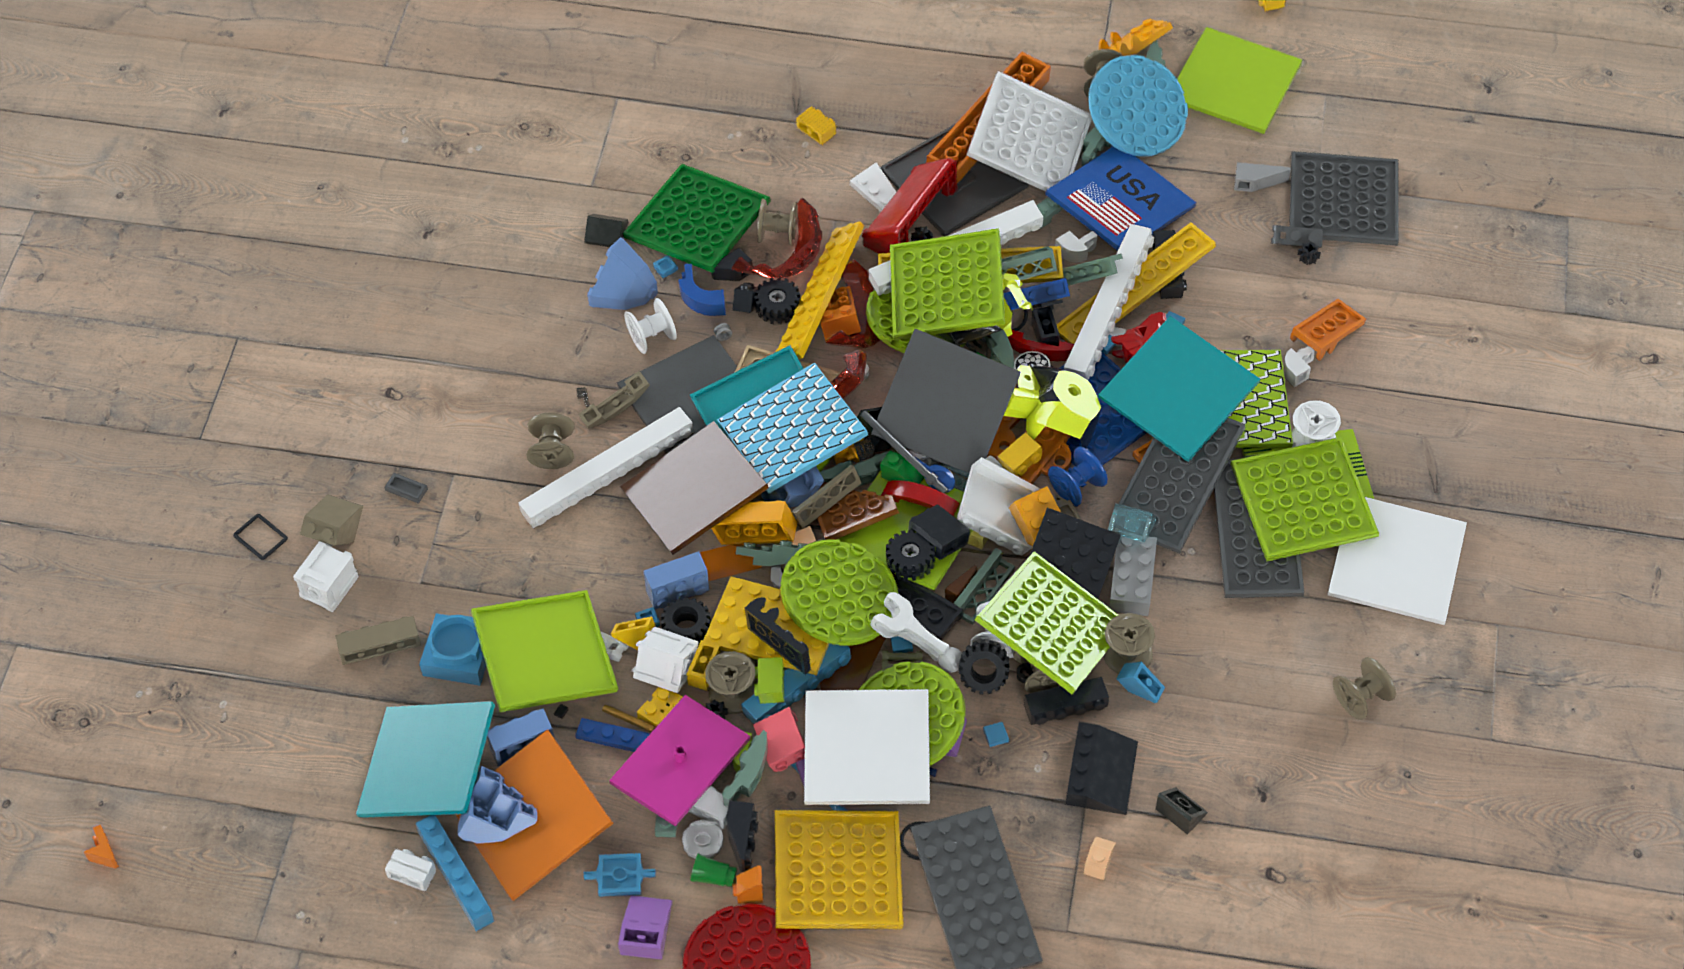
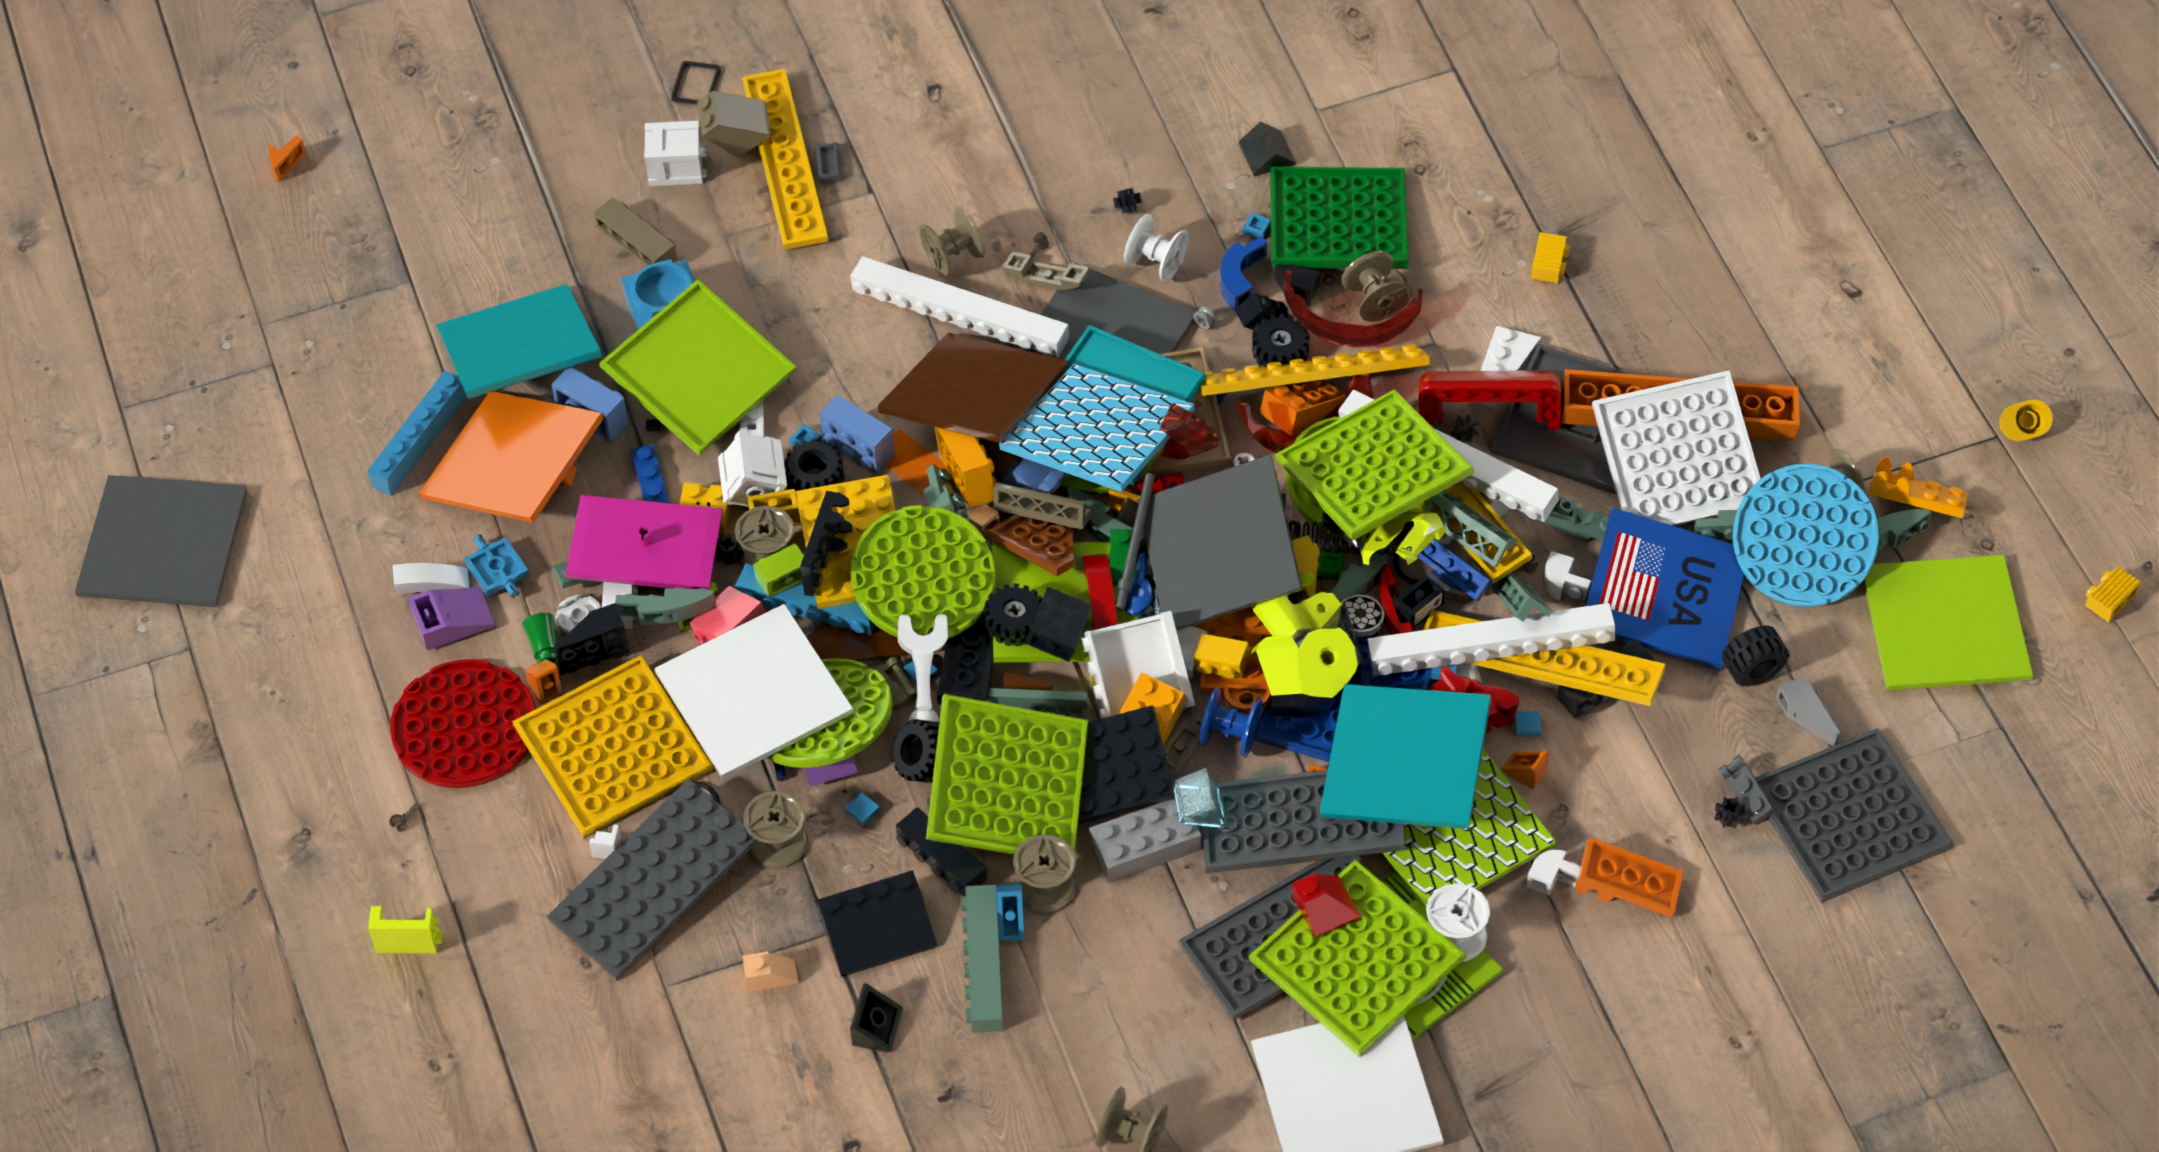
camera: 60 degrees right, 0 degrees up
(389, 512) = (787, 163): none -> yellow plate
(410, 869) = (400, 396): white brick -> none
(494, 810) = (493, 422): medium blue brick -> none
(589, 325) = (1127, 200): none -> black gear
(599, 926) = (428, 576): none -> white slope
(623, 280) = (1198, 193): medium blue brick -> none
(628, 718) = (677, 479): pearl gold bar -> none
(633, 631) = (774, 426): yellow slope -> none
(922, 912) = (605, 843): none -> white panel
(988, 785) = (777, 824): none -> dark tan piece
(1170, 716) = (983, 959): none -> sand green brick
(1209, 177) = (1755, 655): none -> black tyre
(1213, 333) = (1527, 767): none -> orange slope
(1259, 494) = (1324, 903): none -> red slope

